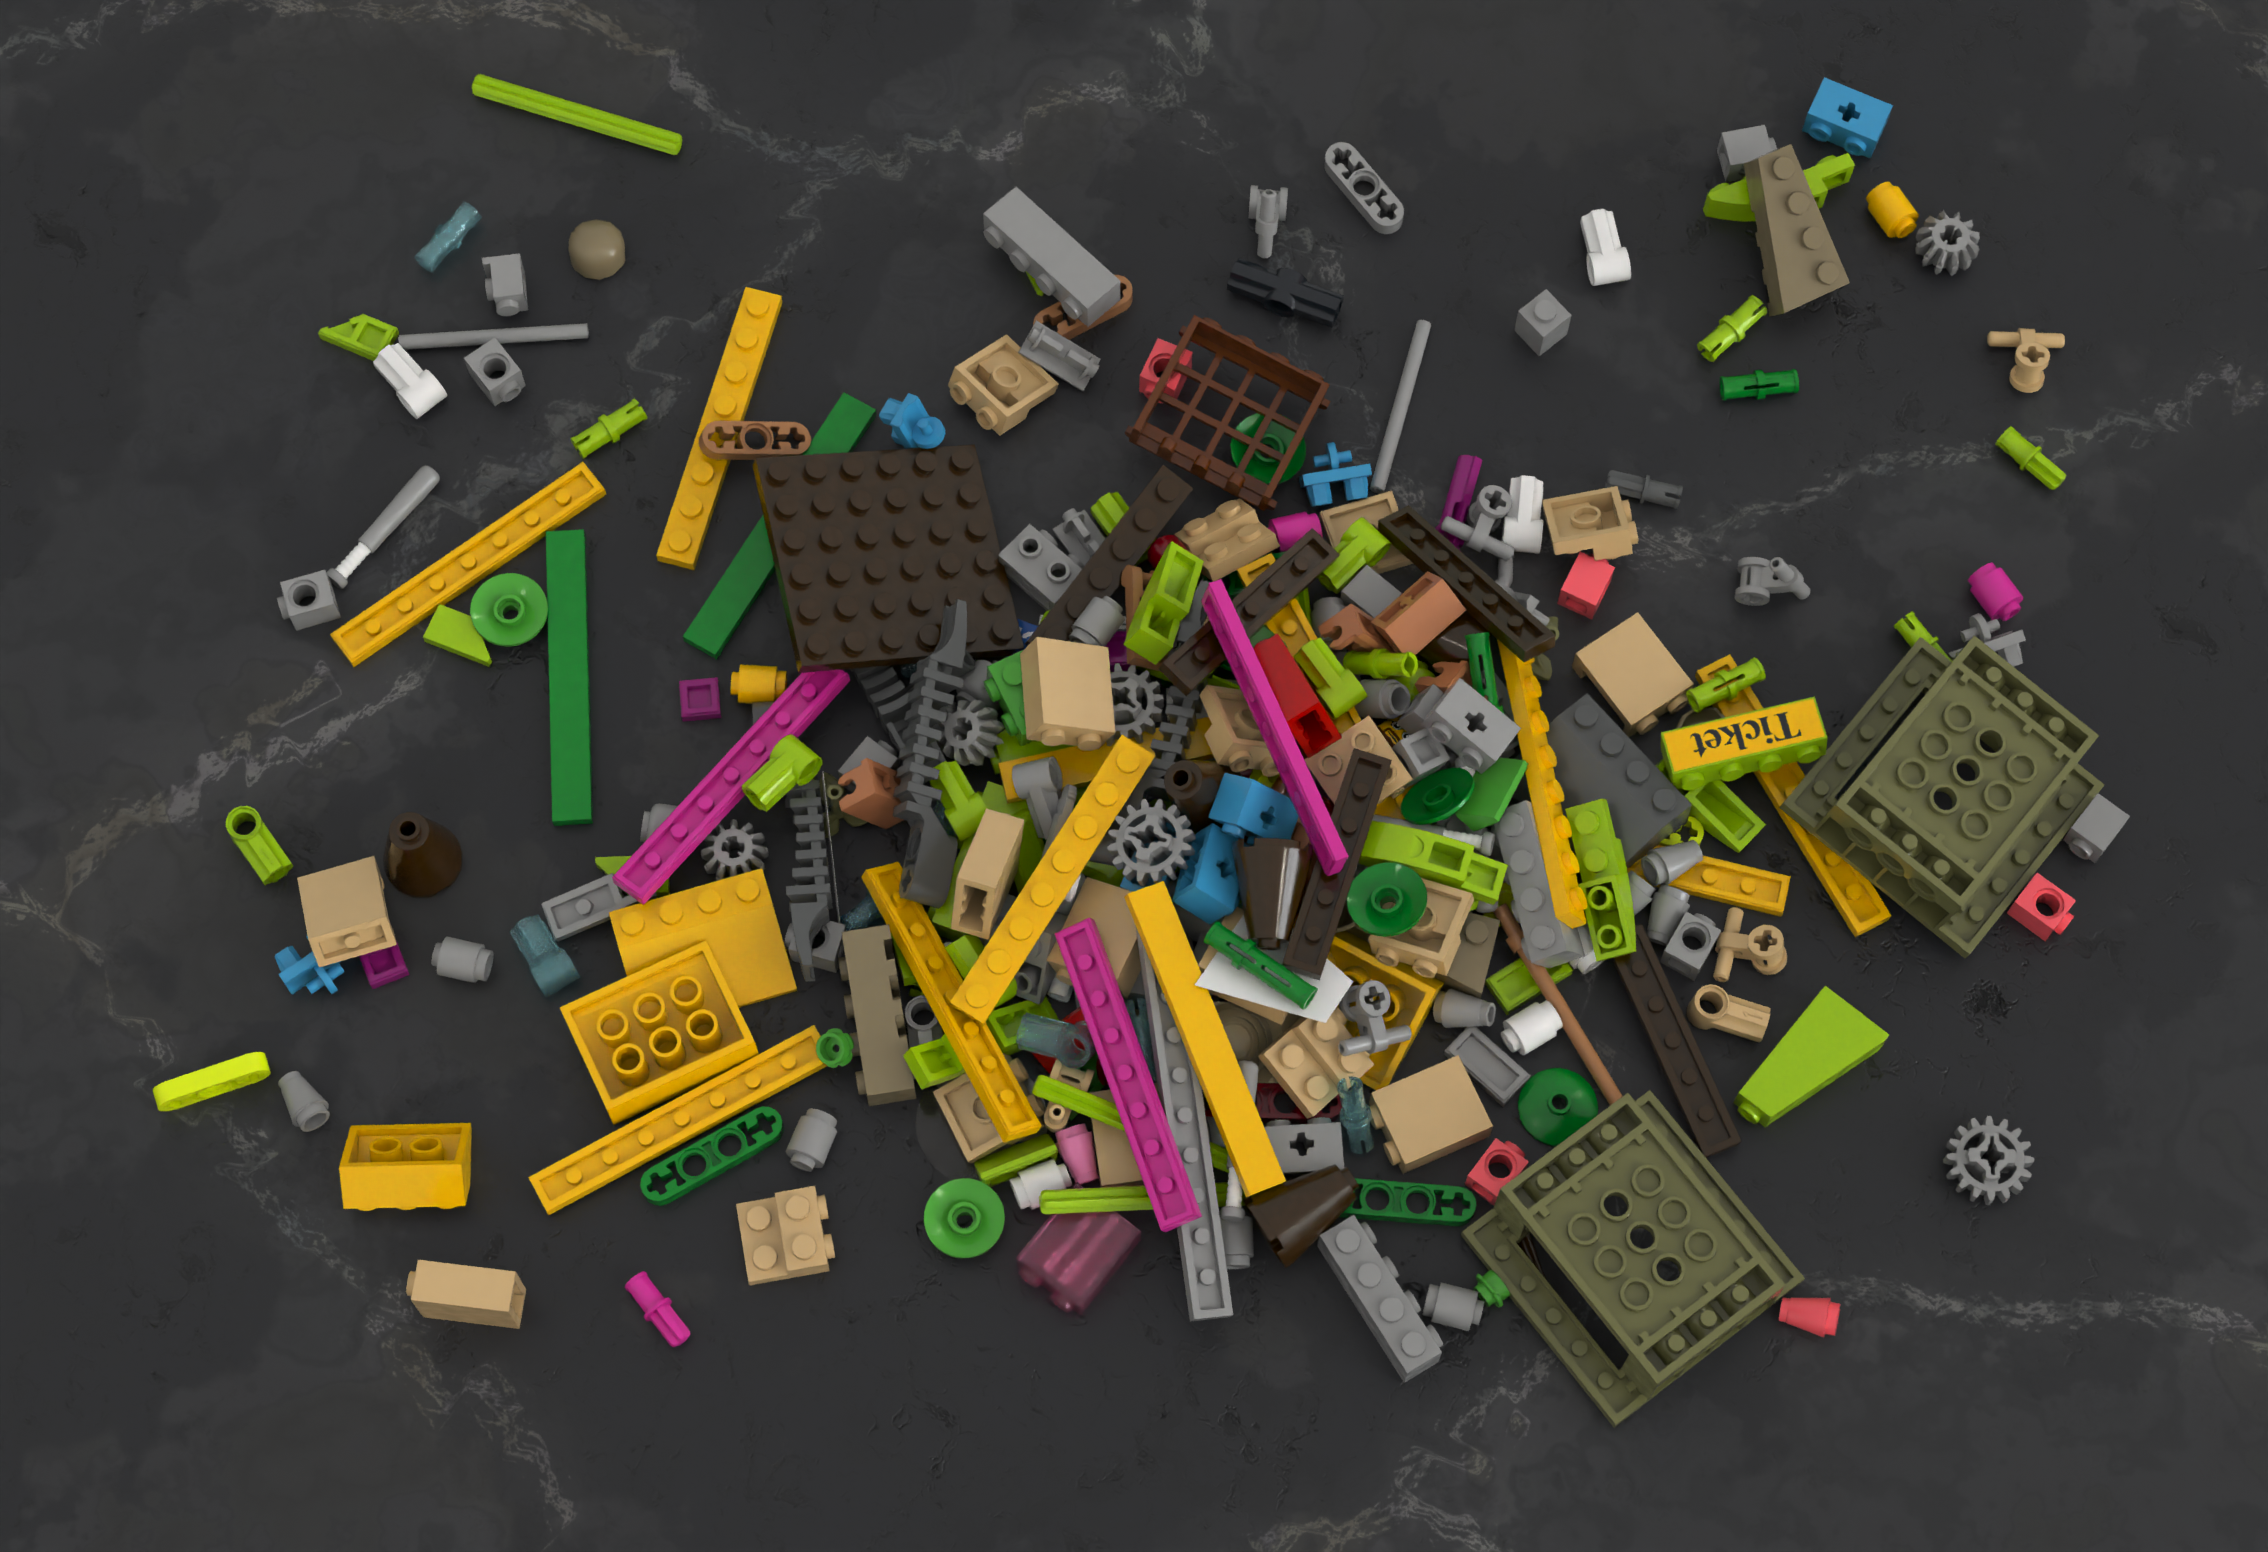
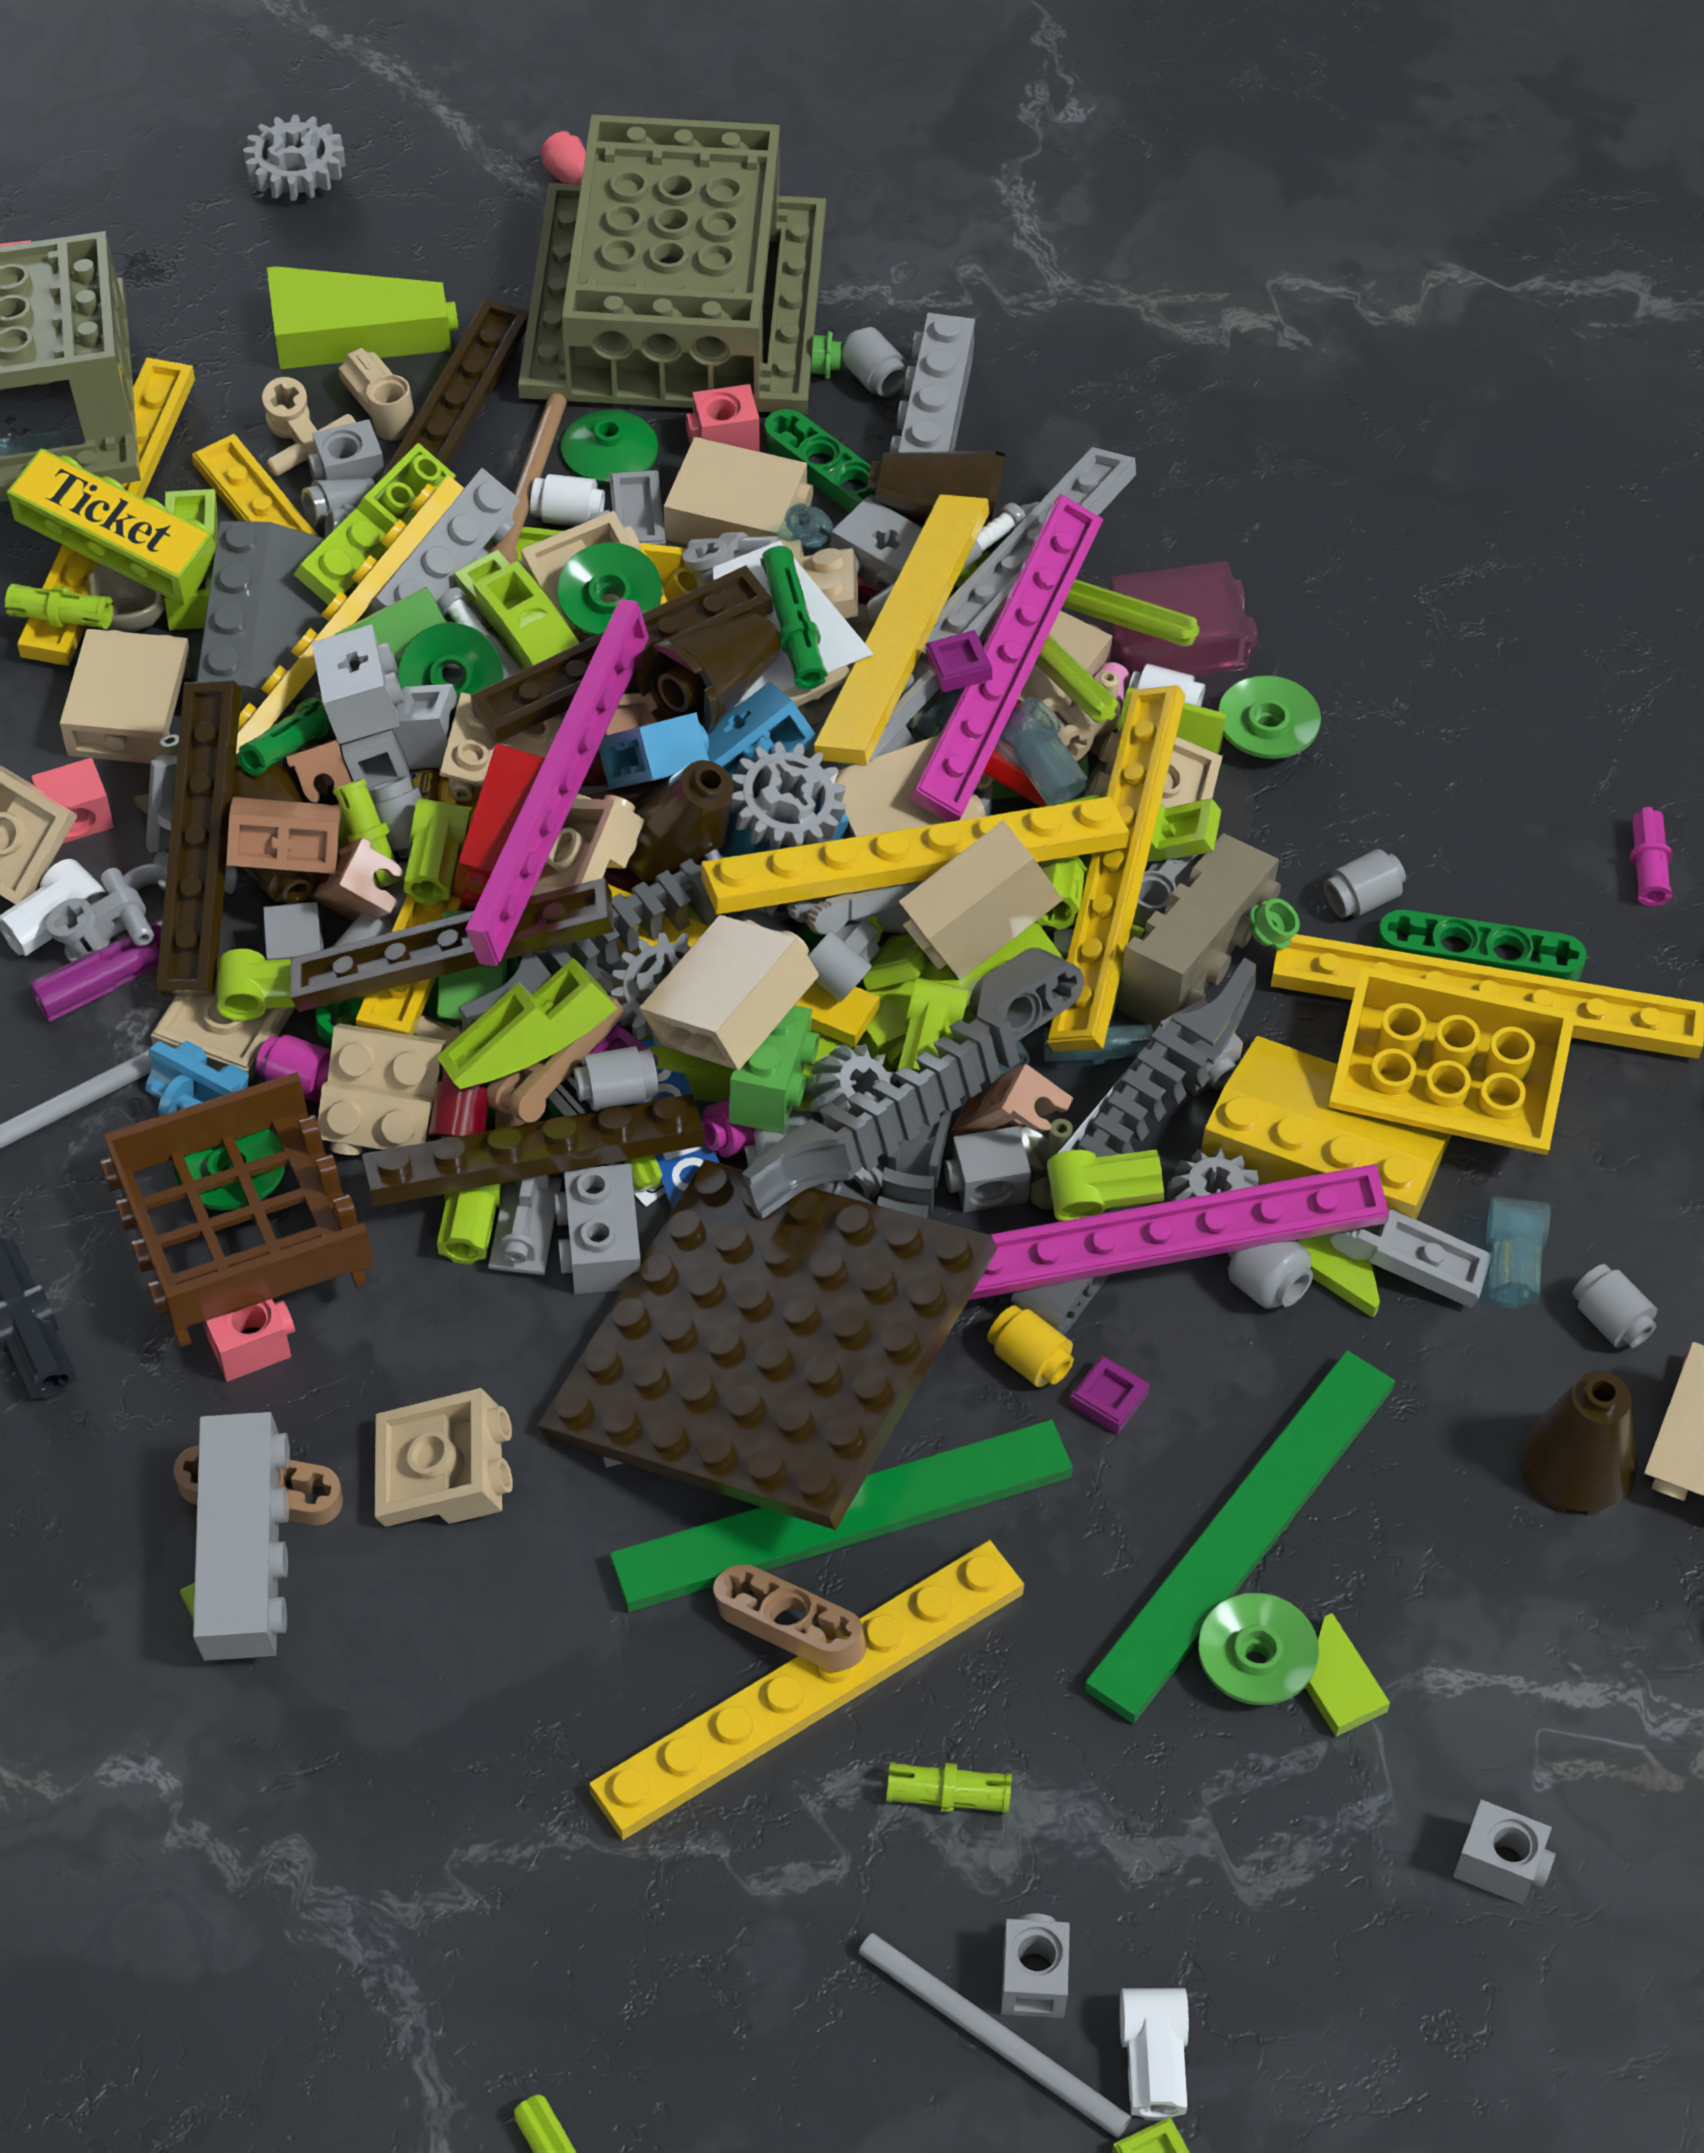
camera: 140 degrees left, 15 degrees down
(393, 515) = (1312, 1890): light grey piece -> none
(468, 564) = (1260, 1759): yellow tile -> none
(506, 283) = (921, 2078): light grey brick -> none
(596, 249) = (760, 2044): dark tan hair -> none
(785, 1235) = (1462, 829): tan plate -> none
(912, 423) = (592, 1471): dark azure hips -> none
(1059, 356) = (340, 1438): light grey hinge -> none
(1141, 1023) = (958, 661): none -> magenta tile
(1669, 862) = (294, 512): light grey cone -> none

